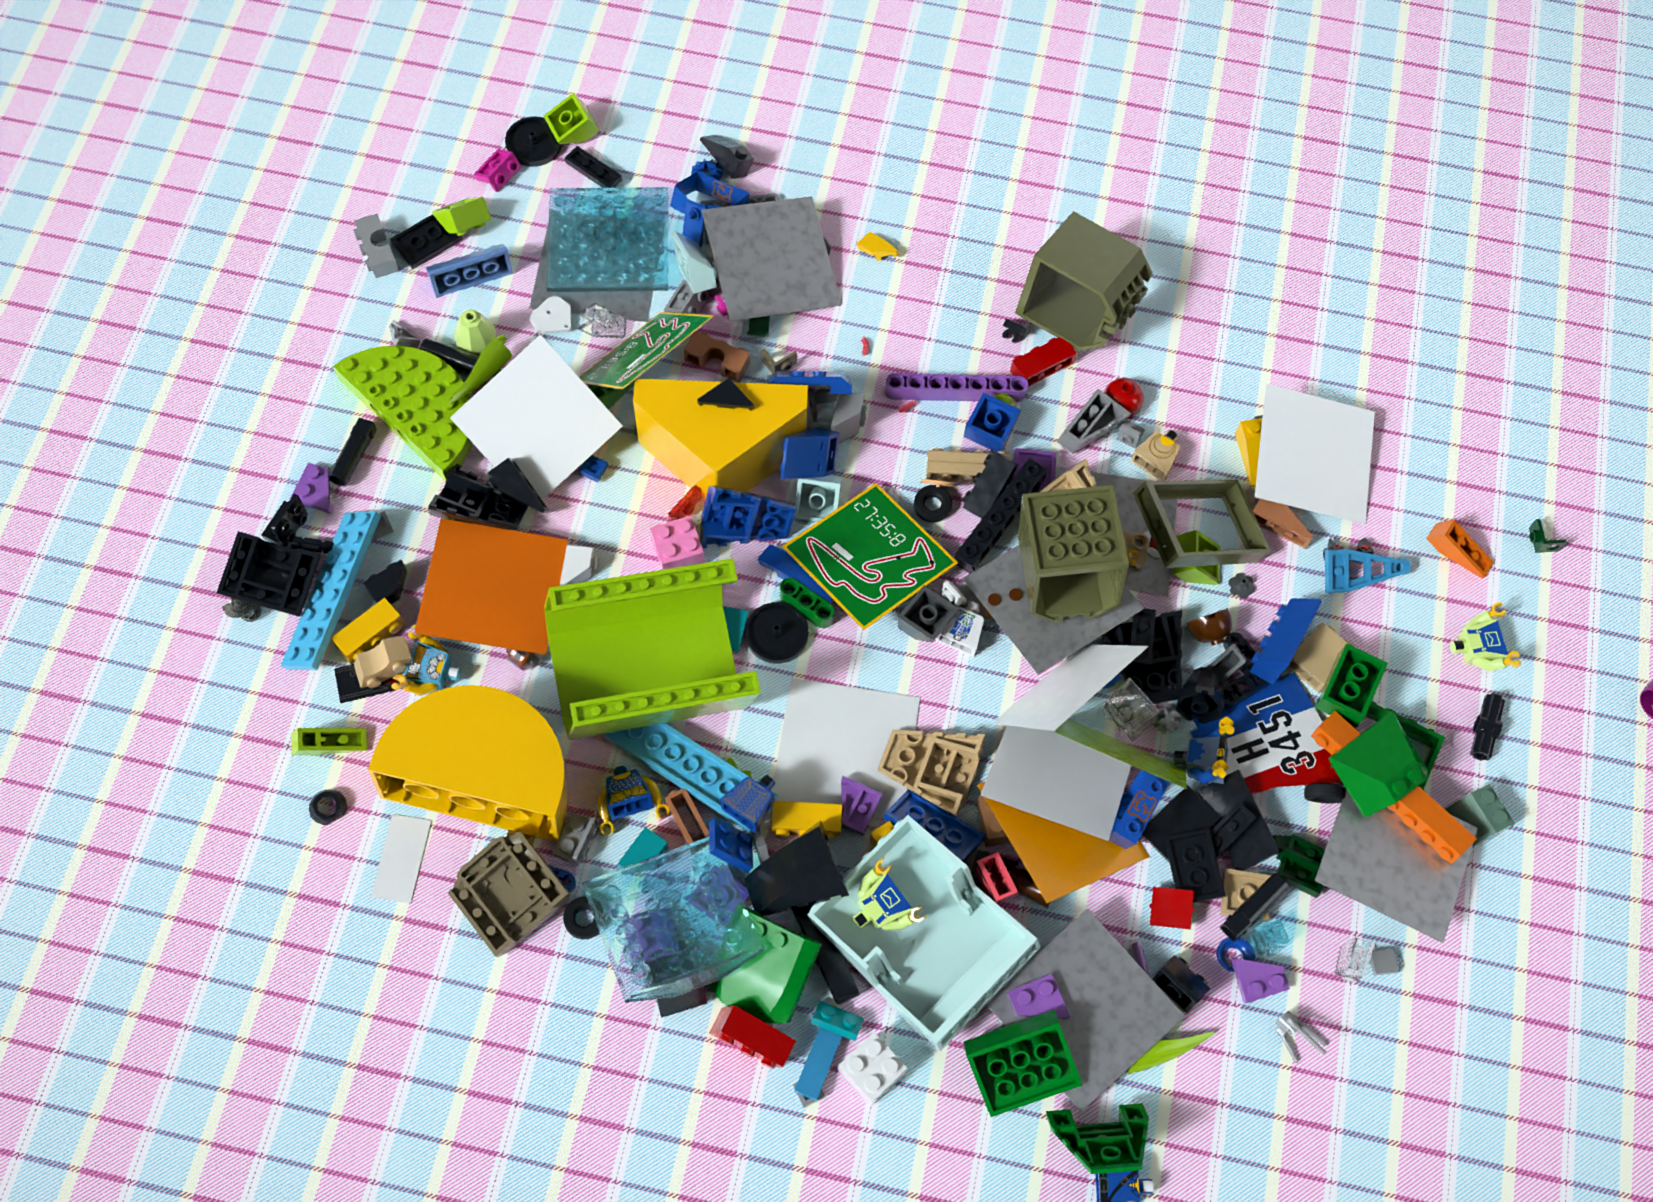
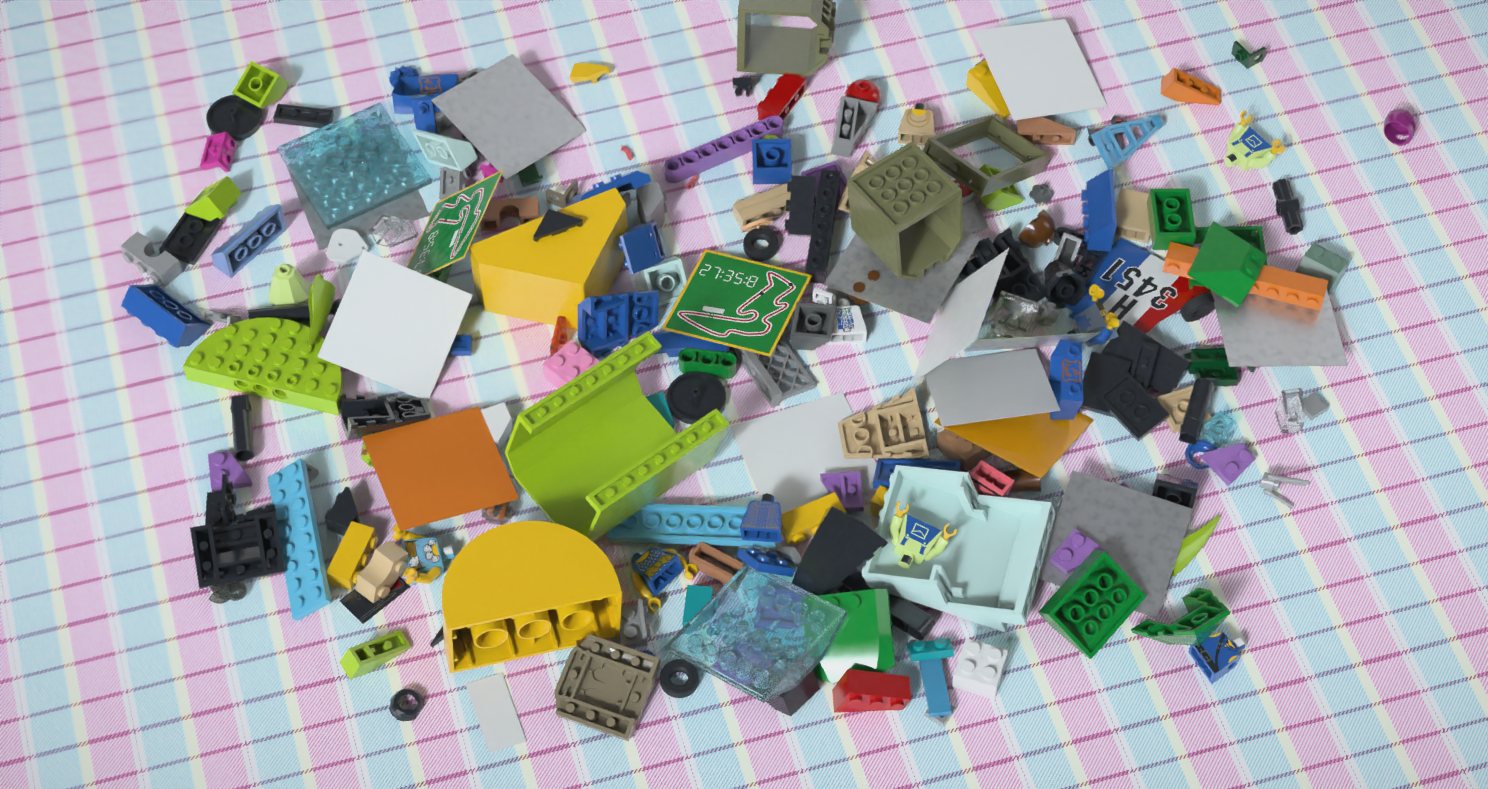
camera: 25 degrees left, 10 degrees down
(354, 306) = (164, 314): none -> blue slope
(512, 481) = (403, 384): black slope -> none
(730, 155) = (421, 55): black slope -> none
(851, 651) = (767, 383): none -> light grey fence
(1130, 434) = (885, 122): light grey bracket -> none
(1172, 908) = (1134, 444): red piece -> none

